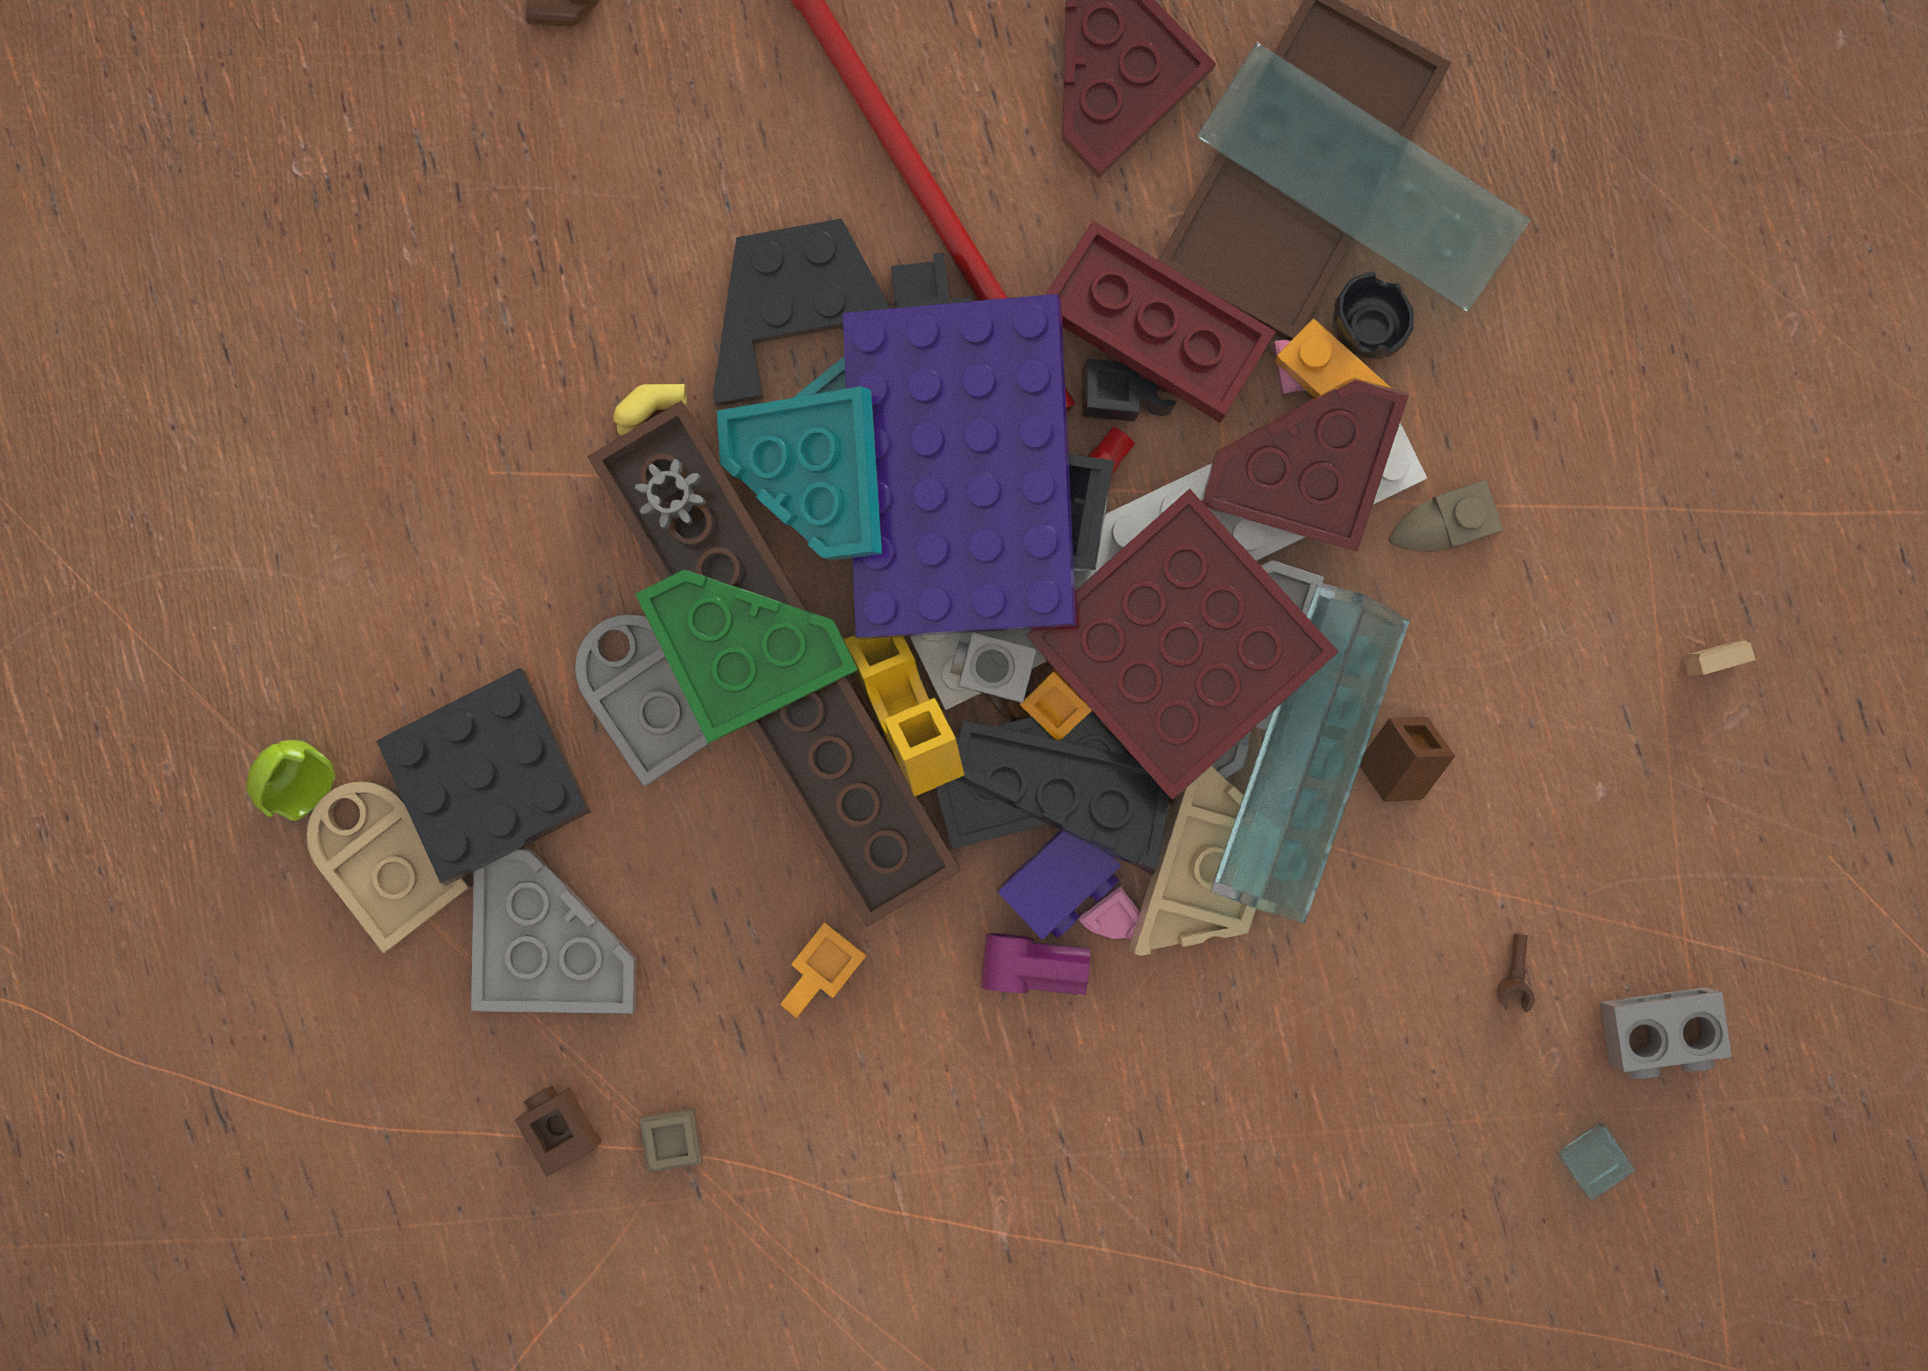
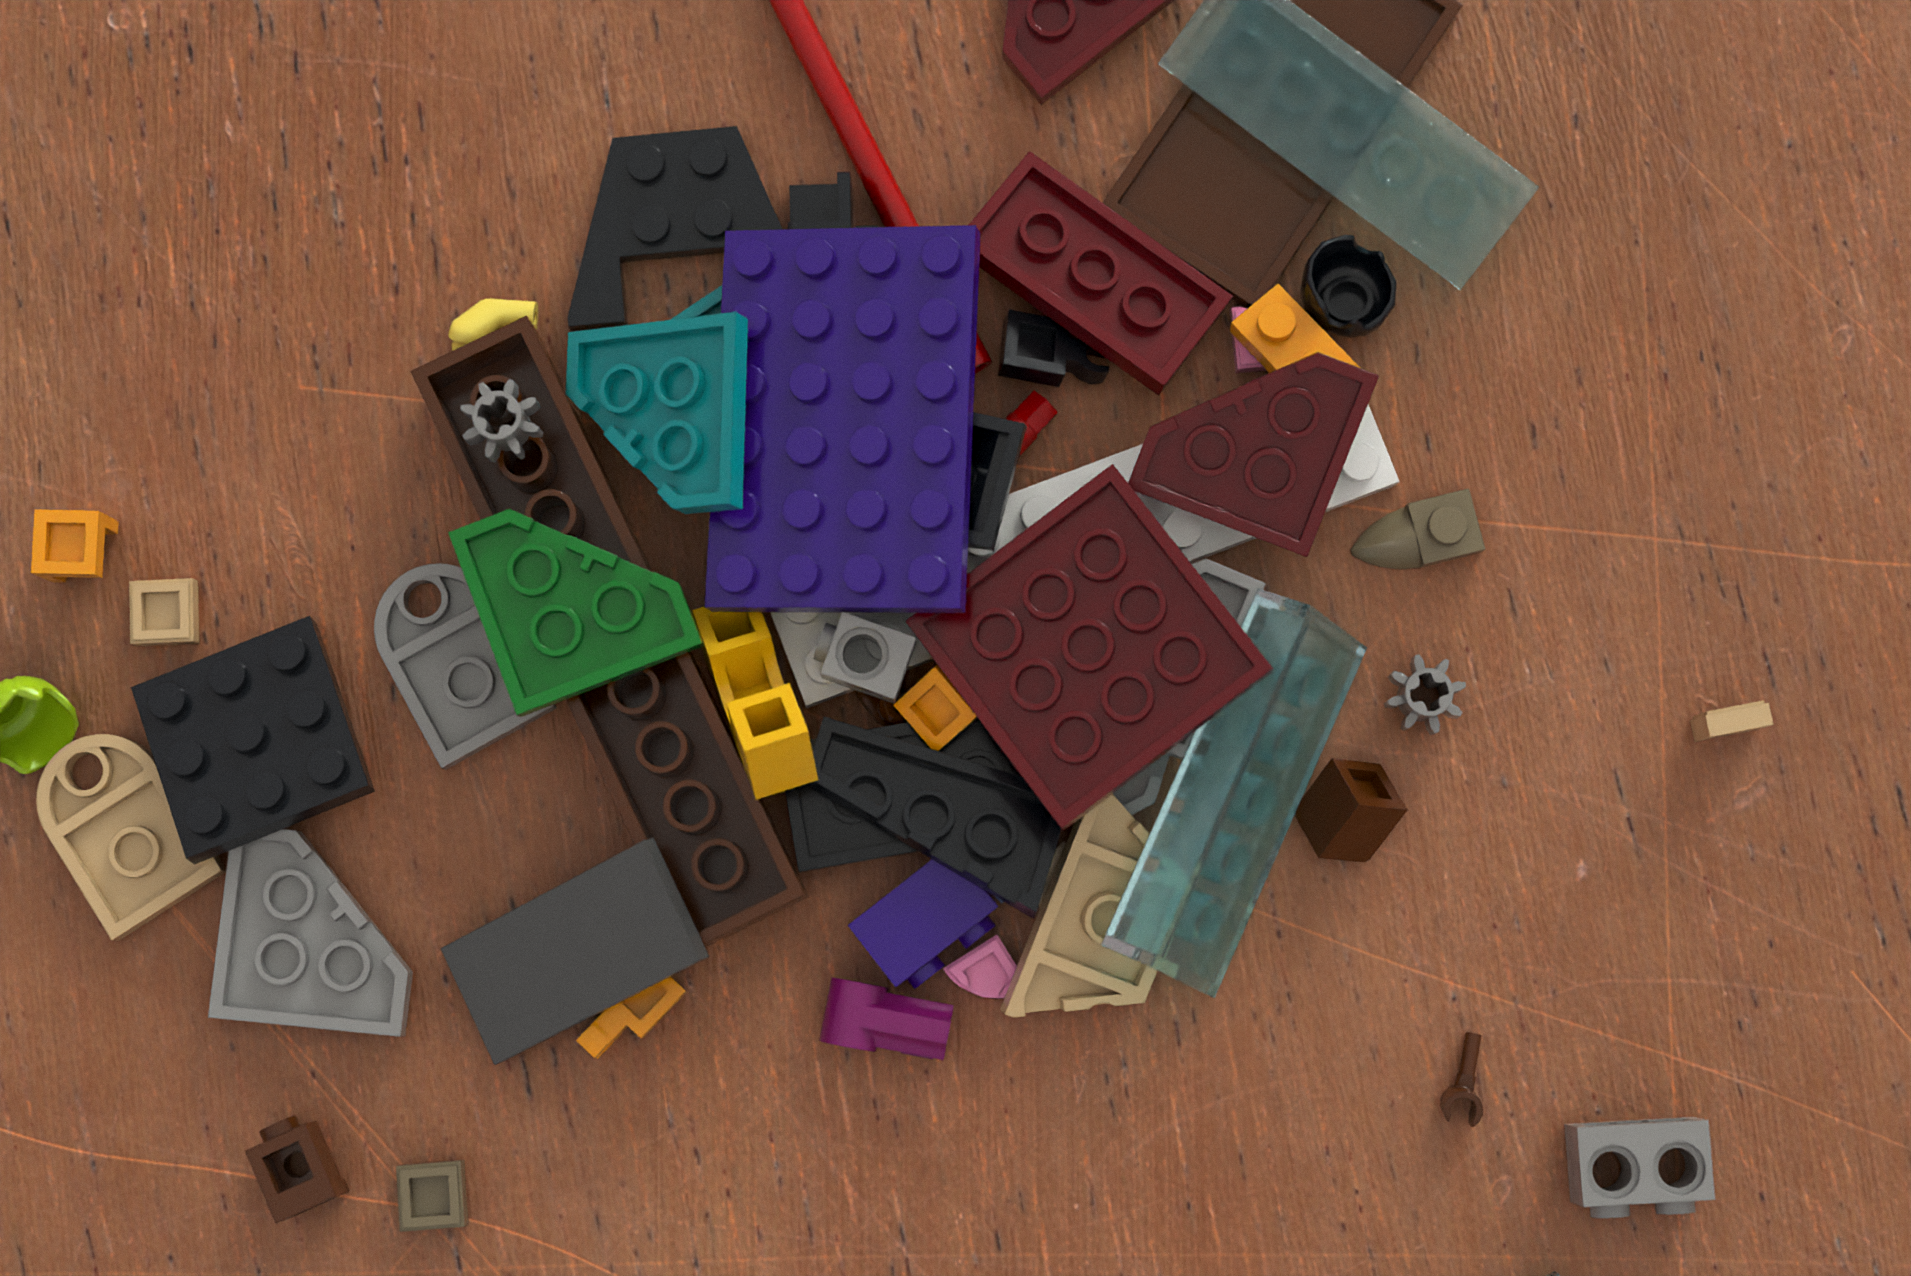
camera: 10 degrees right, 5 degrees down
(312, 625) = (69, 543): none -> light orange panel
(396, 674) = (164, 612): none -> tan tile
(772, 932) = (575, 951): none -> dark grey tile
(1473, 666) = (1431, 679): none -> light grey gear

